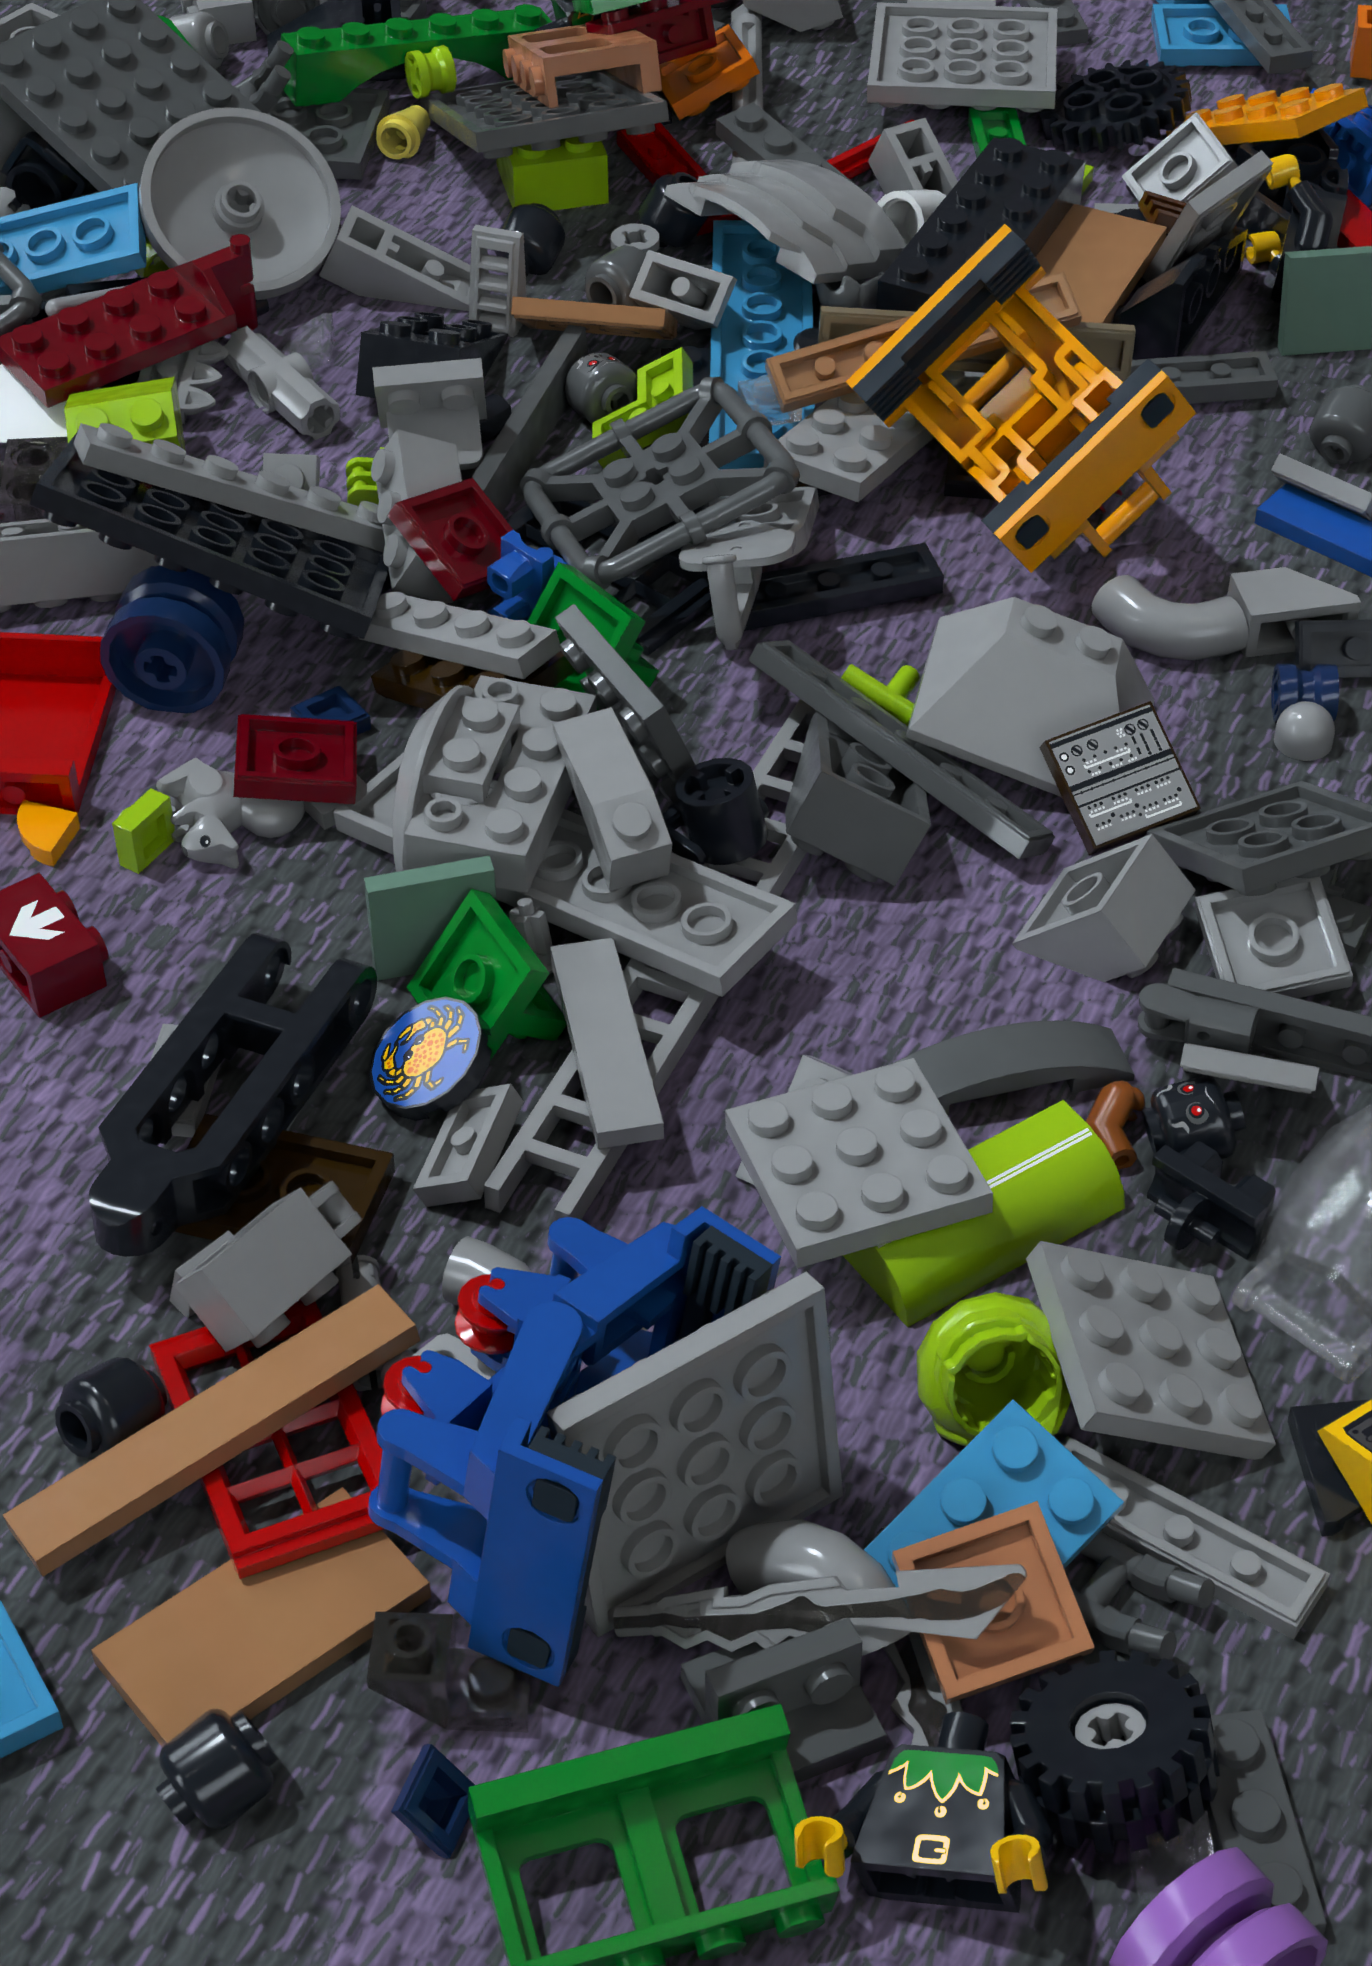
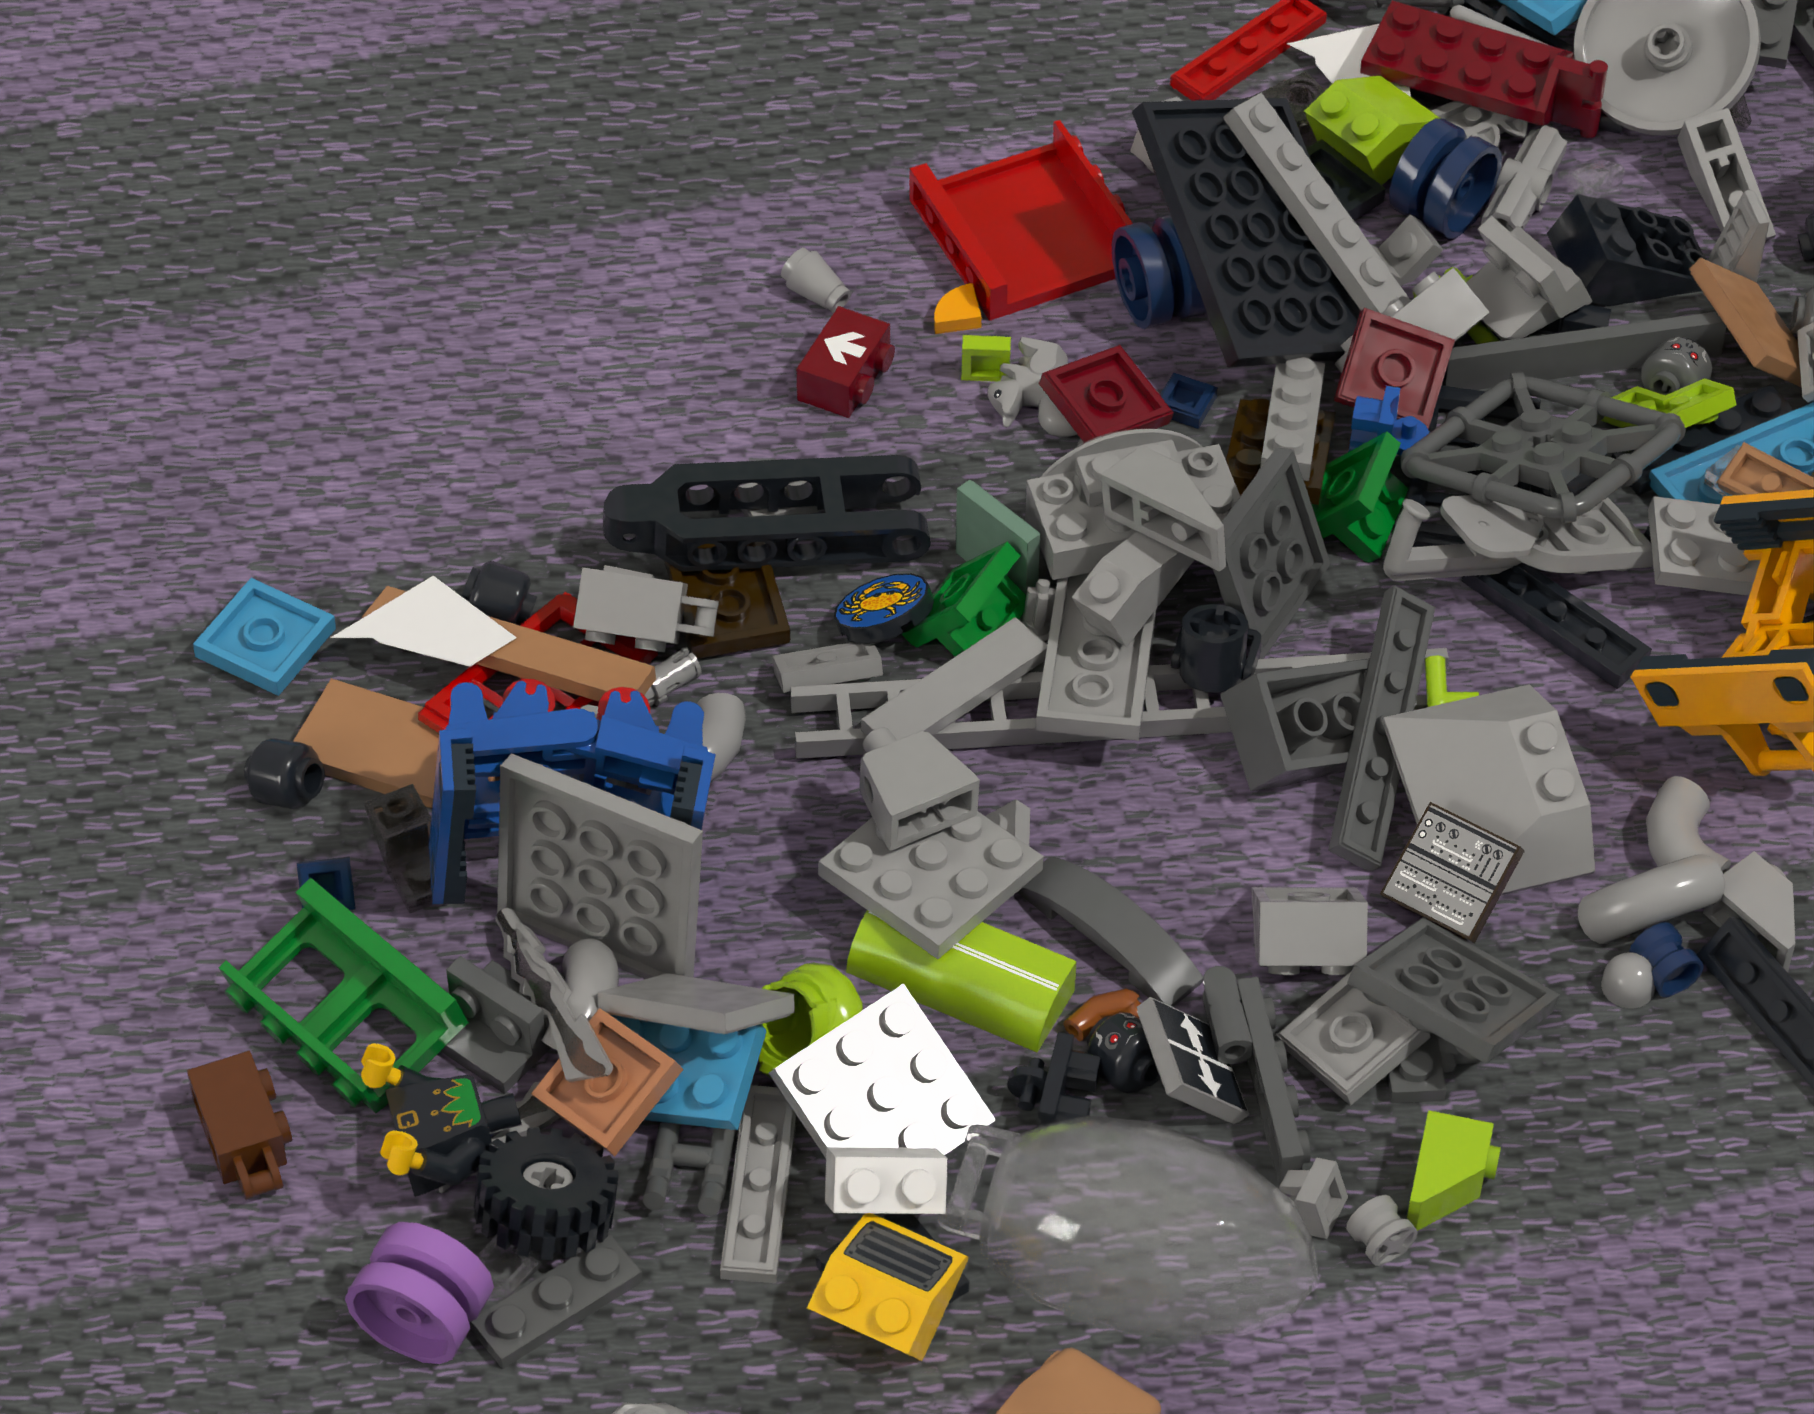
camera: 60 degrees right, 5 degrees up
(117, 1485) = (433, 623): none -> white sticker
(244, 406) = (1445, 178): none -> dark blue wheel
(588, 713) = (1164, 504): none -> light grey slope
(768, 1107) = (914, 786): none -> light grey torso
(938, 1454) = (696, 1003): none -> light grey tile
(1244, 663) = (1651, 898): none -> light grey cylinder
(1291, 1390) = (886, 1180): none -> white brick

